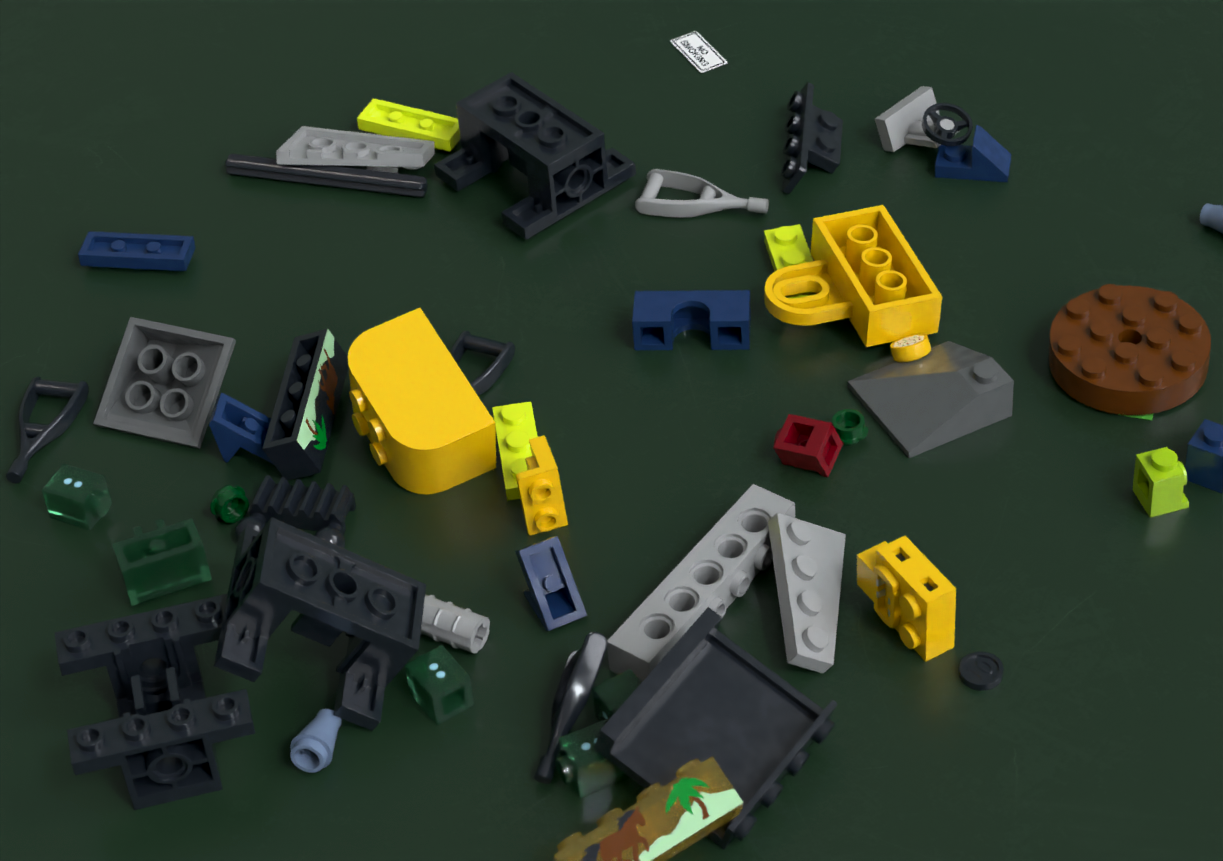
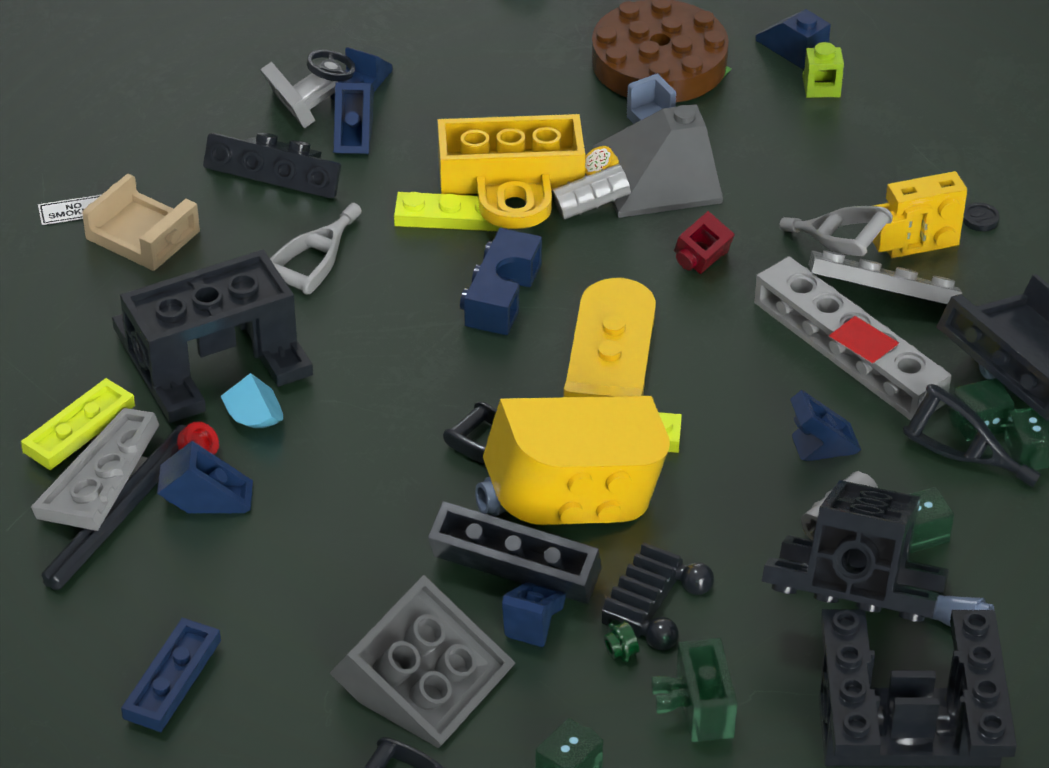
camera: 80 degrees left, 0 degrees up
(354, 209) = (203, 483): none -> dark blue slope
(407, 193) = (201, 434): none -> red tile
(468, 214) = (253, 403): none -> medium azure brick
(541, 490) = (710, 399): yellow bracket -> none
(635, 418) = (611, 340): none -> yellow piece
(678, 582) = (864, 339): none -> red sticker
(683, 86) = (139, 225): none -> tan panel
(832, 532) = (825, 225): none -> light grey piece
(850, 426) = (680, 219): dark green plate -> none
(852, 347) = (591, 191): none -> light grey axle
(895, 166) = (353, 118): none -> dark blue slope
(1030, 362) = (648, 97): none -> sand blue panel

